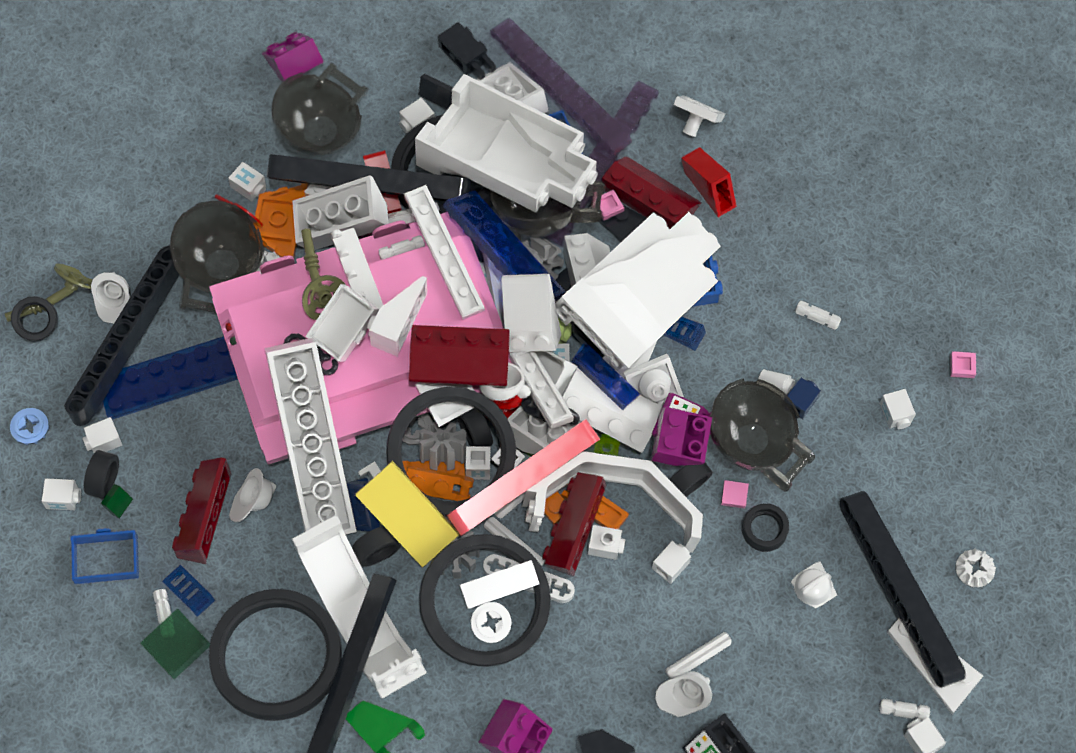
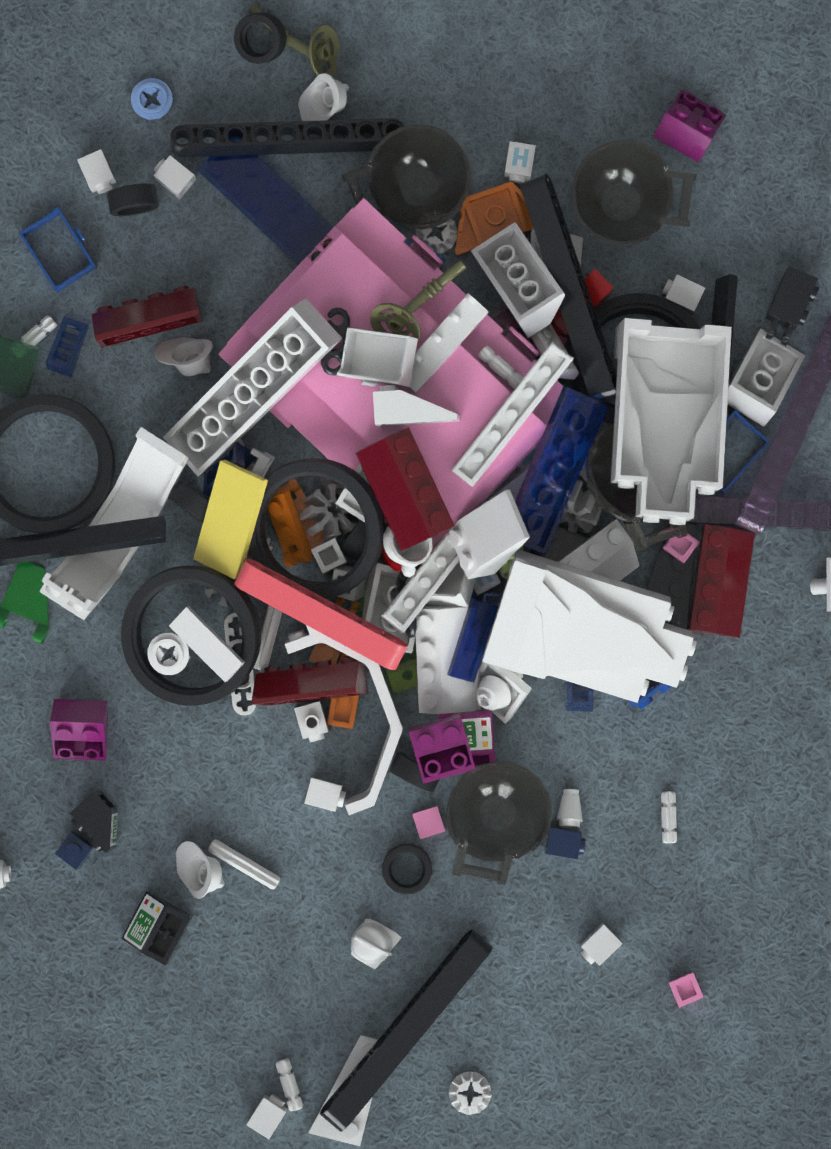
camera: 70 degrees right, 20 degrees up
(116, 501) = (117, 228): dark green tile -> none
(256, 221) = (475, 180): red piece -> none
(710, 180) = (765, 634): red slope -> none

